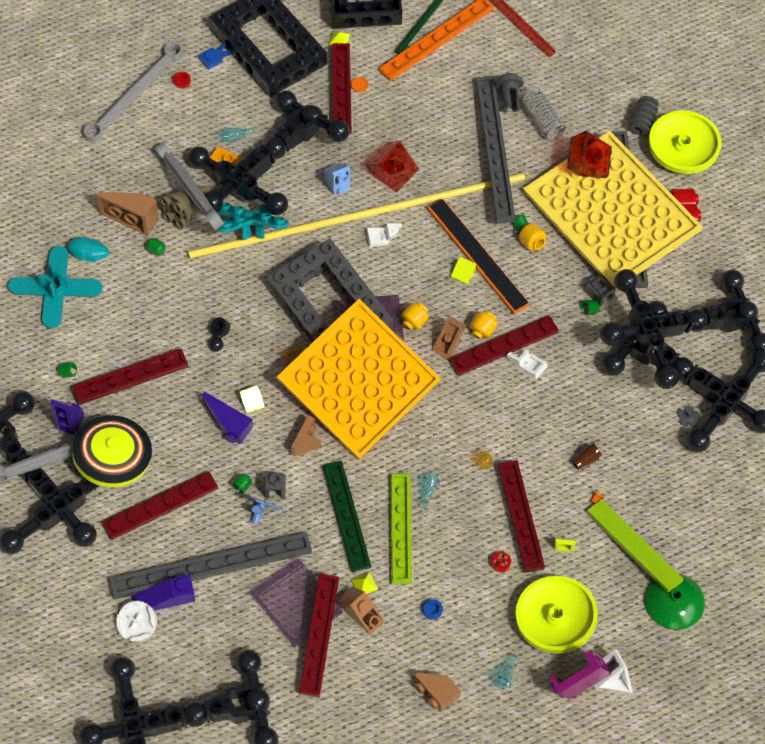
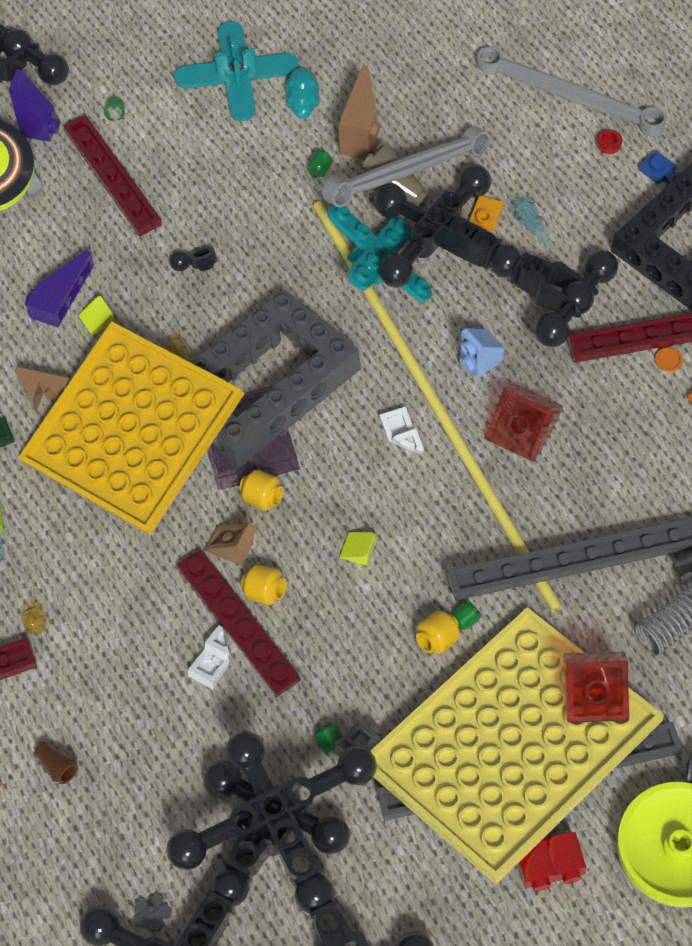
camera: 85 degrees right, 0 degrees up
(477, 254) = (390, 564): black tile -> none

